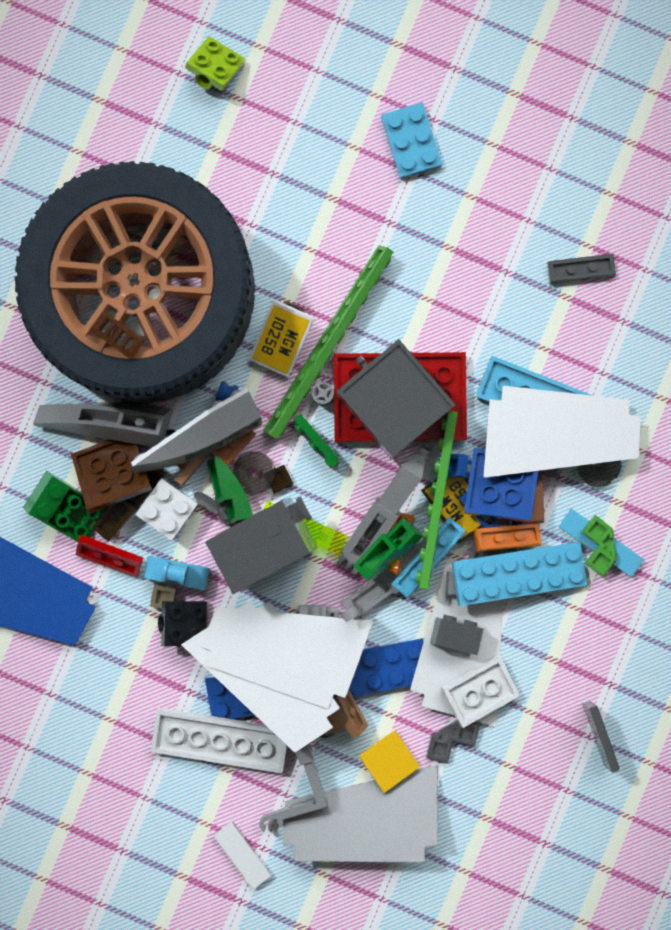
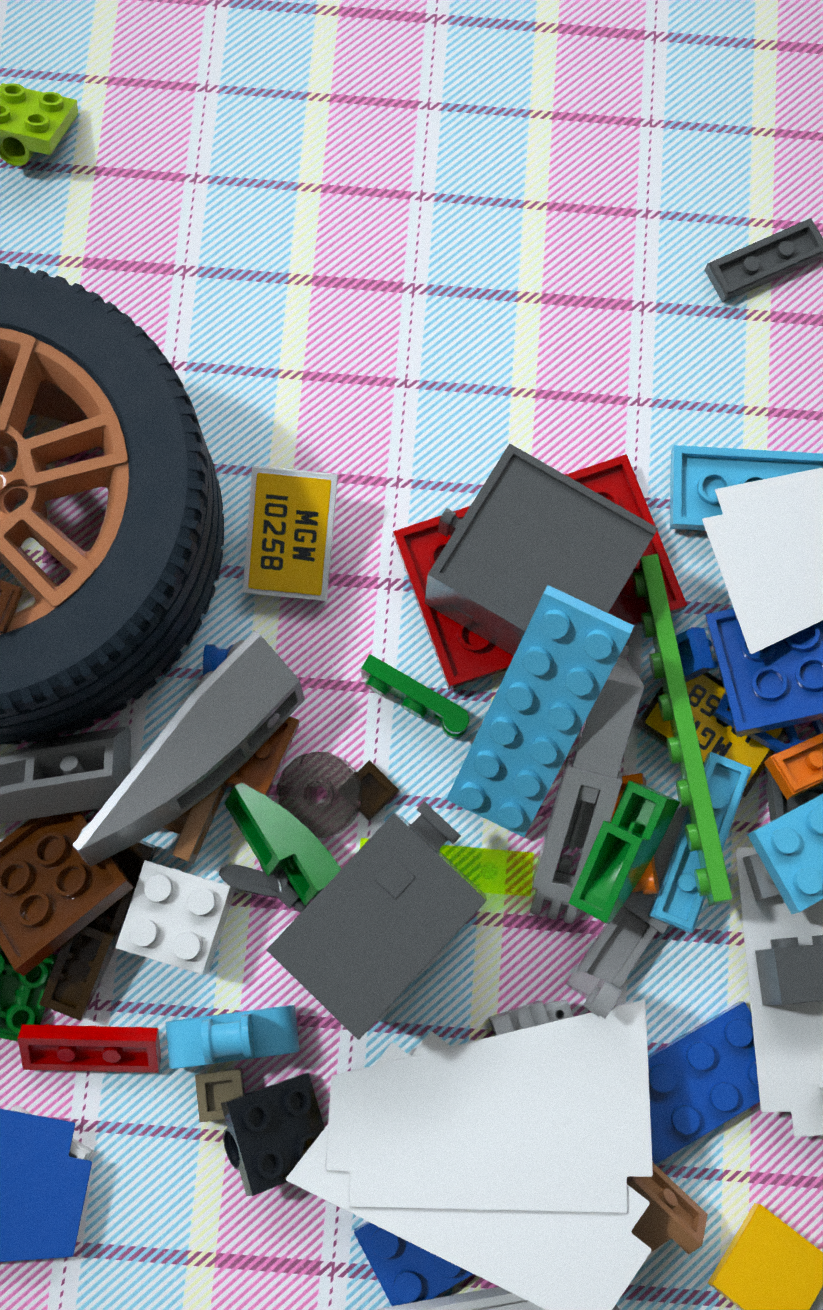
camera: 20 degrees left, 10 degrees down
(321, 390) = (401, 601): light grey wheel -> none
(332, 335) = (373, 526): bright green plate -> none
(367, 472) = (539, 710): none -> medium azure plate
(411, 140) = (403, 145): medium azure plate -> none

